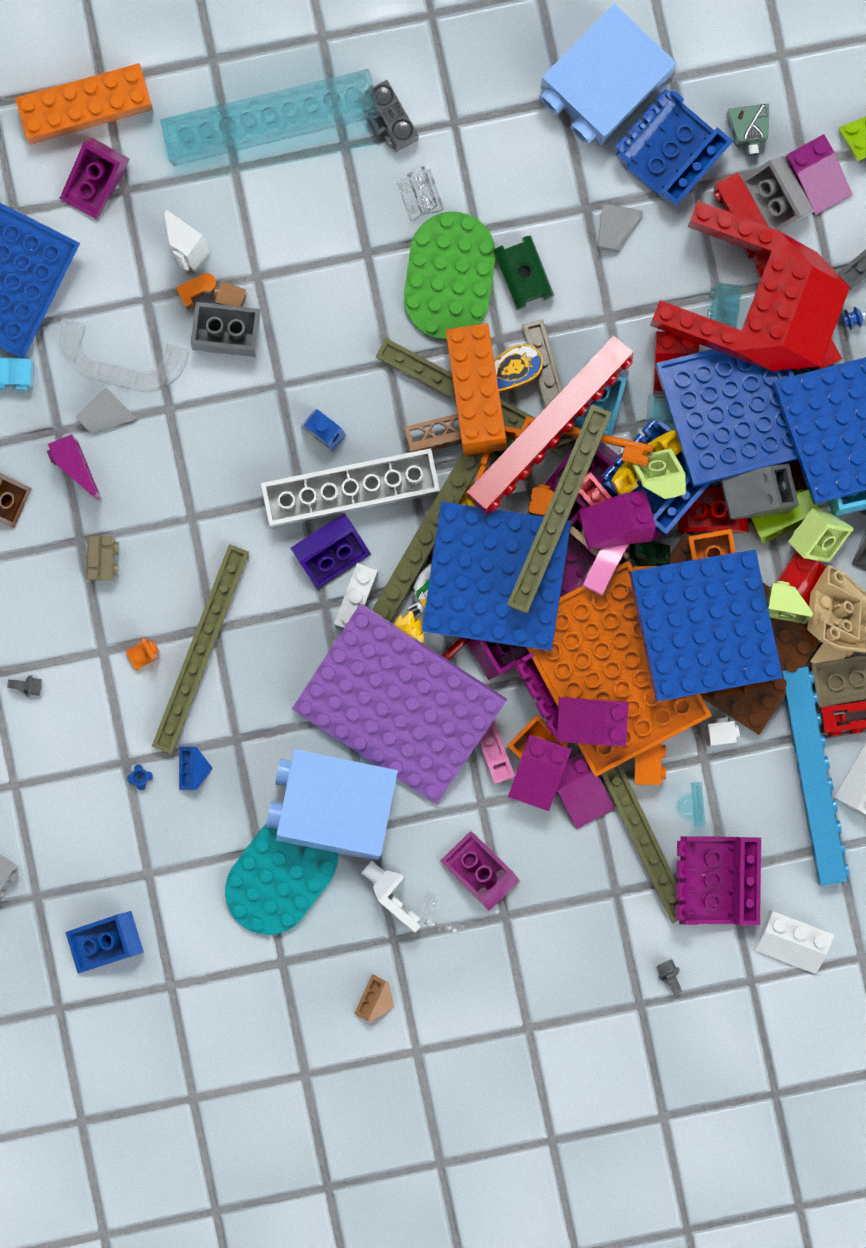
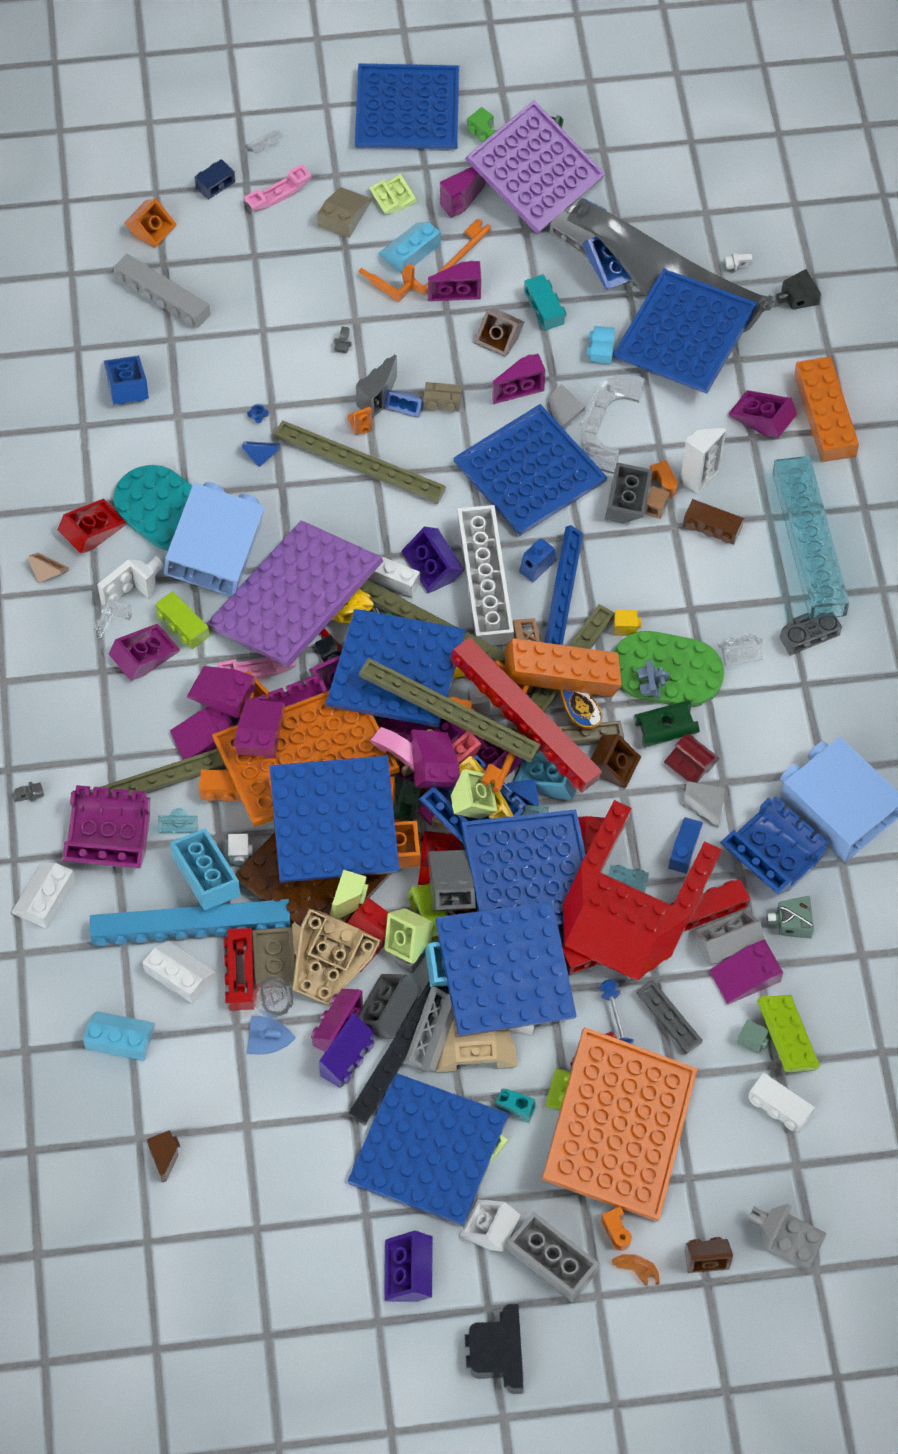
camera: 95 degrees right, 25 degrees down
(106, 637) = (374, 388): none -> dark grey slope
(109, 603) = (404, 402): none -> blue slope
(195, 447) = (530, 469): none -> blue plate
(253, 231) = (713, 522): none -> reddish brown brick
(315, 954) = (90, 525): none -> red slope
(362, 398) = (563, 586): none -> blue plate
(396, 323) = (626, 622): none -> yellow brick
(436, 832) = (182, 620): none -> lime brick
(463, 657) = (327, 648): none -> black bracket
(485, 288) = (650, 672): none -> sand blue hips
(566, 242) = (691, 759): none -> dark red brick
(575, 328) = (615, 759): none -> reddish brown slope
(626, 421) = (526, 791): none -> blue slope
(670, 245) = (685, 845): none -> blue slope
(758, 765) = (205, 869): none -> medium azure brick

